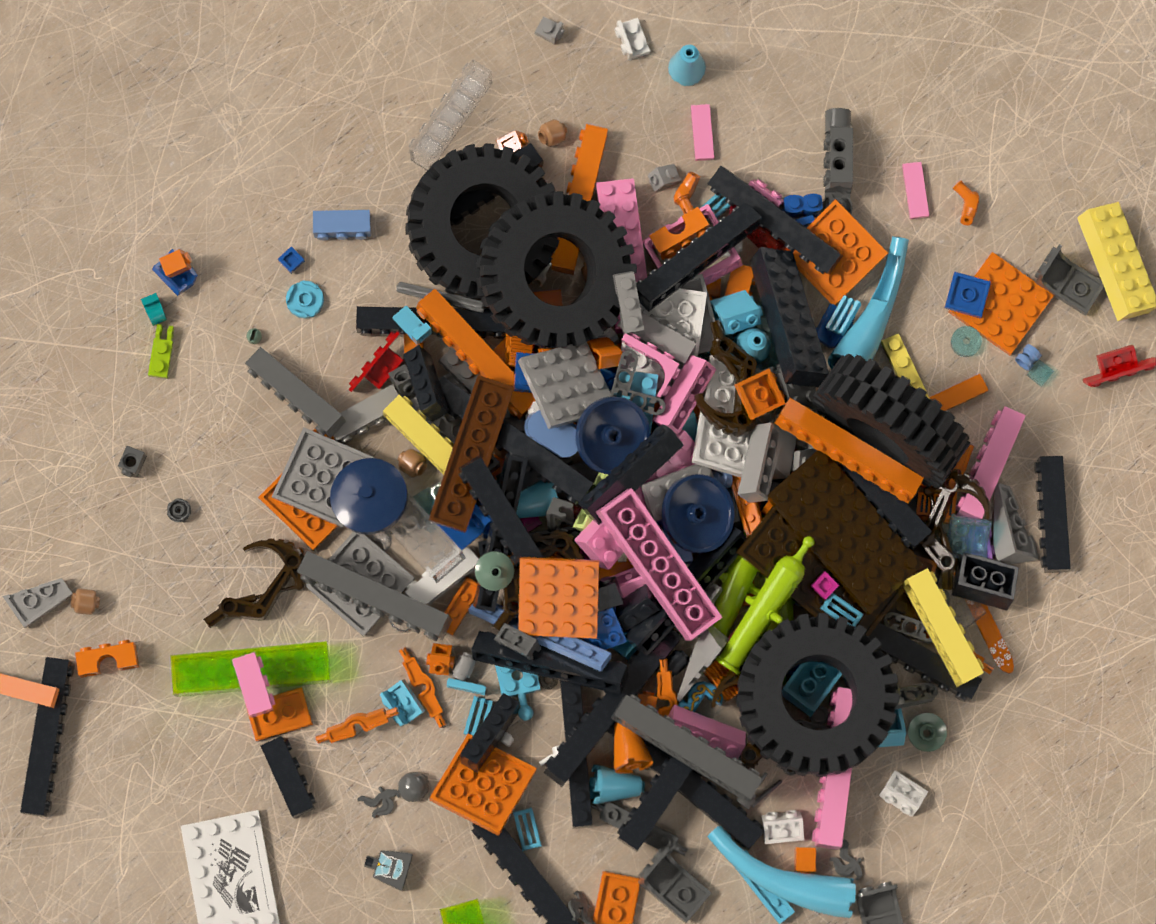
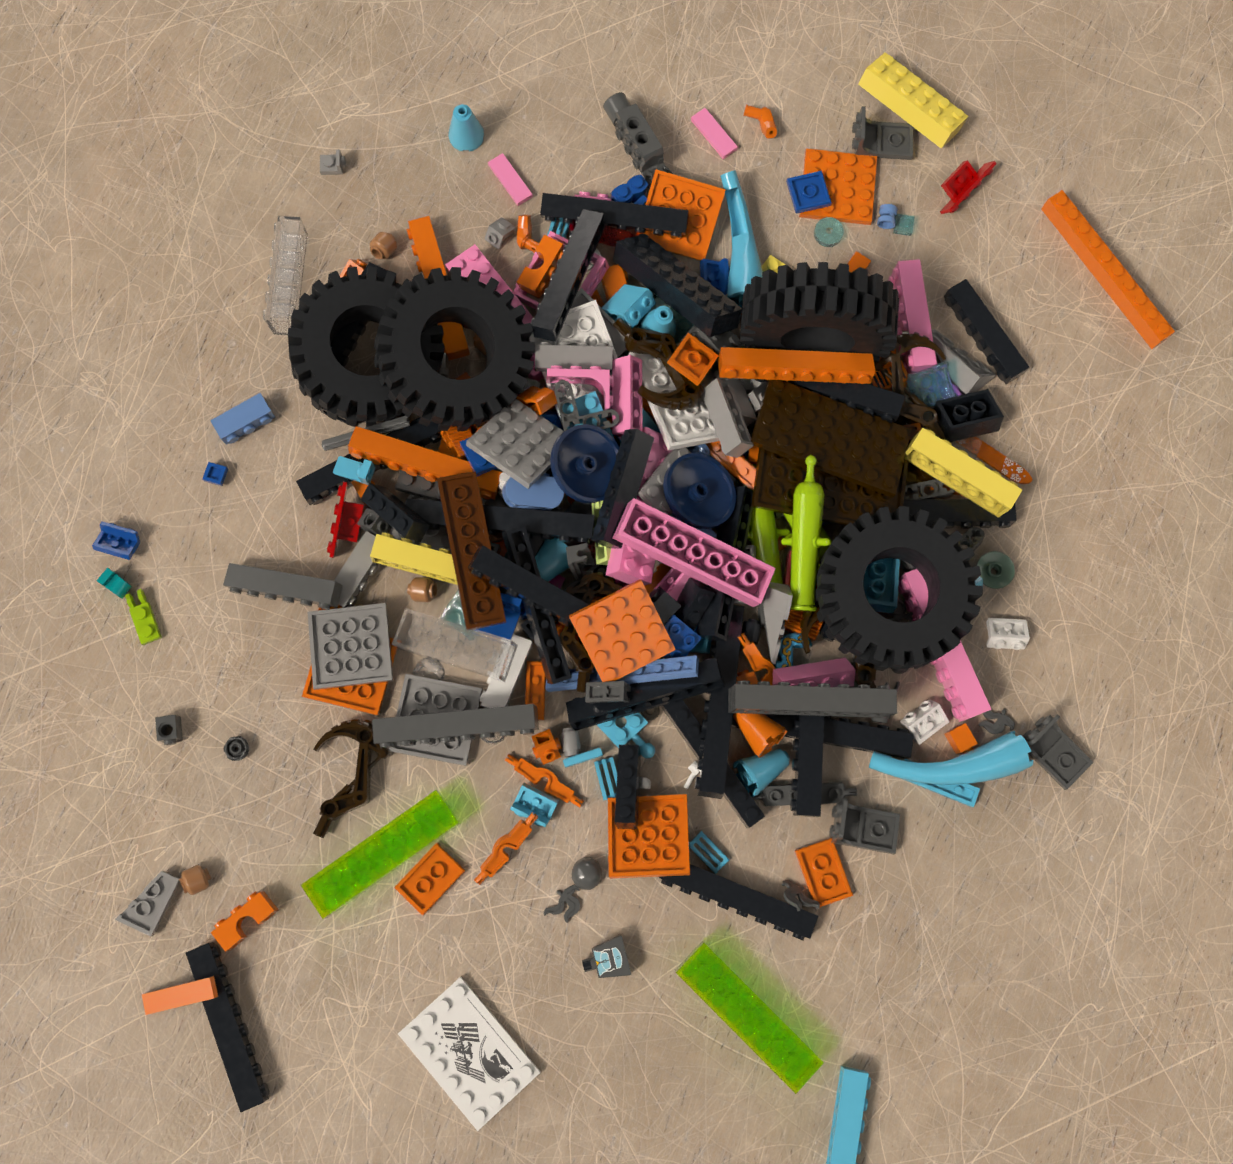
camera: 30 degrees left, 0 degrees up
(176, 263) = (110, 531): orange brick -> none
(253, 684) = (391, 867): bright pink brick -> none
(257, 338) = (222, 556): sand green hinge -> none
(287, 776) = (469, 931): black brick -> none
(304, 299) = (247, 501): medium azure tile -> none
(369, 496) = (400, 639): dark blue dish -> none
(484, 569) = (541, 639): sand green dish -> none
(628, 301) = (541, 347): light grey arch -> none
(632, 38) = (406, 134): white bracket -> none
(824, 585) = (843, 492): dark pink plate -> none
(828, 602) = (853, 505): medium azure tile -> none
(840, 315) = (724, 247): medium azure tile -> none

